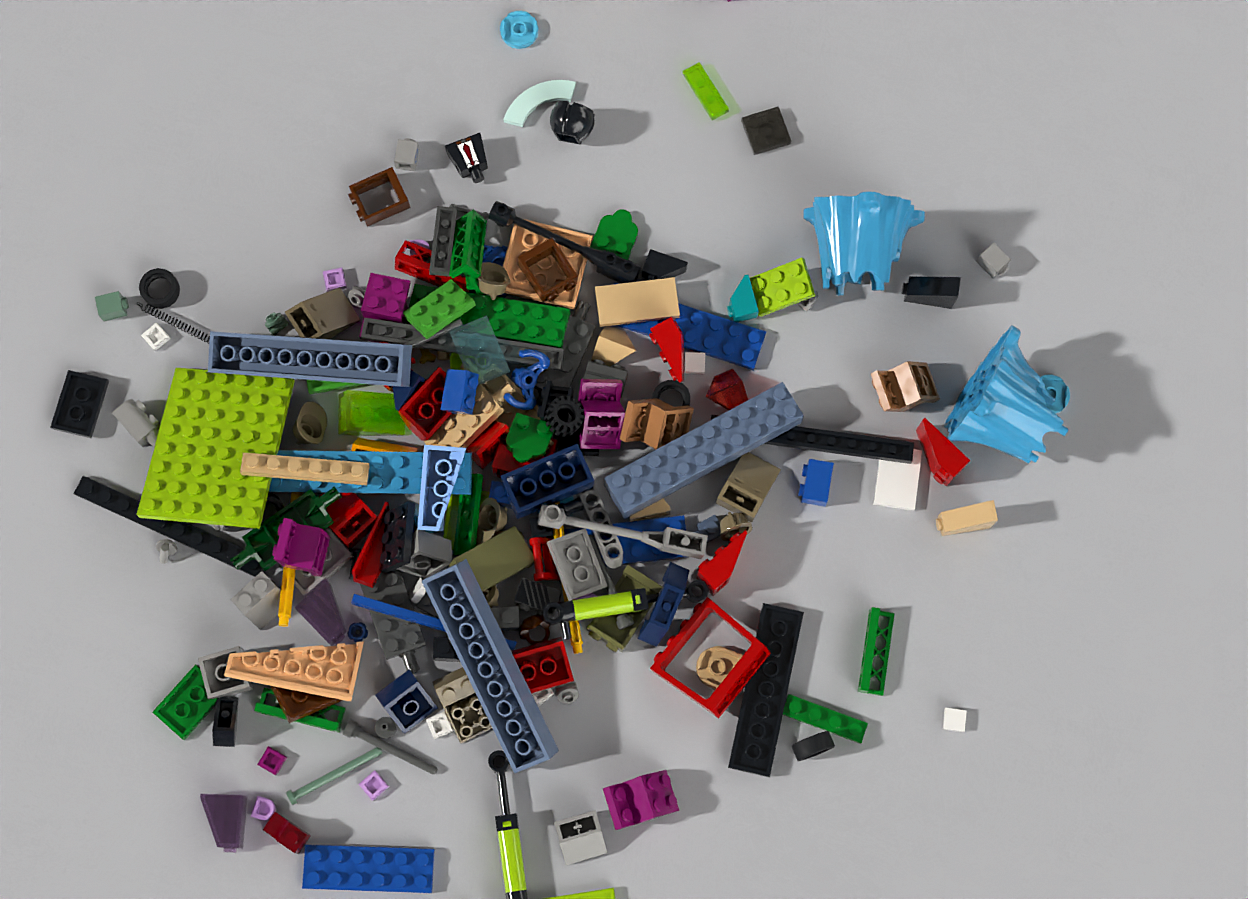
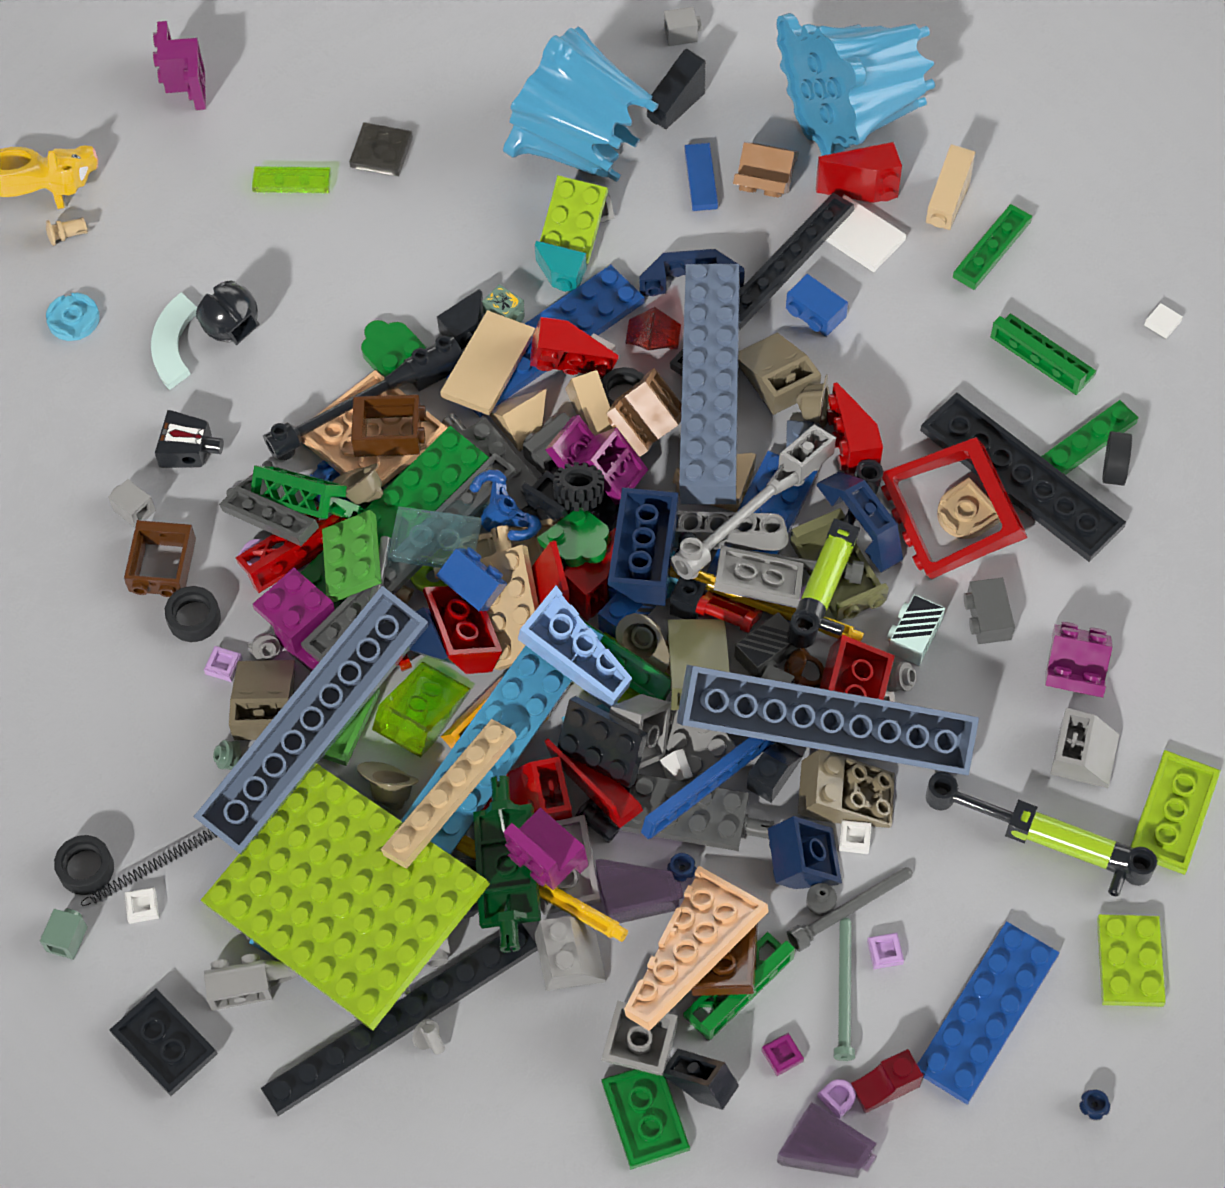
camera: 55 degrees left, 15 degrees down
(351, 226) = (190, 595): none -> black tyre
(606, 682) = (915, 630): none -> light aqua brick
(645, 383) = (590, 401): none -> tan slope
(648, 722) = (989, 610): none -> dark grey brick
(687, 285) = (504, 303): none -> sand green brick
(772, 366) = (653, 279): none -> dark blue slope
(876, 347) = (701, 177): none -> blue tile
(941, 572) = (992, 247): none -> green plate

